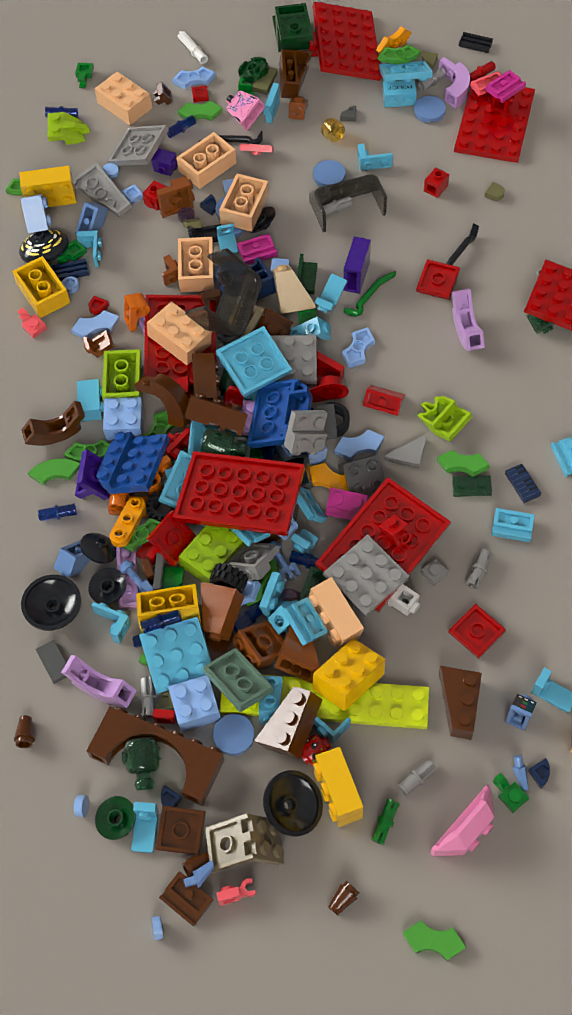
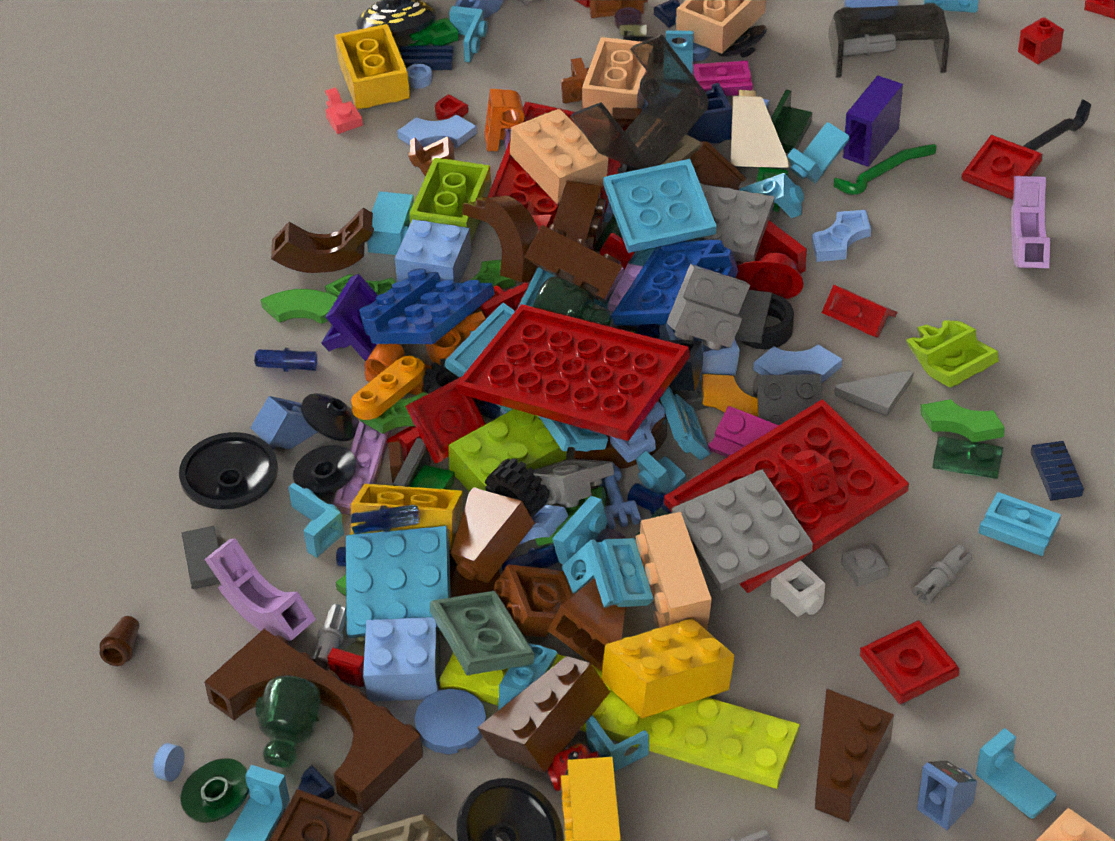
camera: 15 degrees right, 15 degrees down
(127, 568) = (365, 450): medium blue hinge -> none

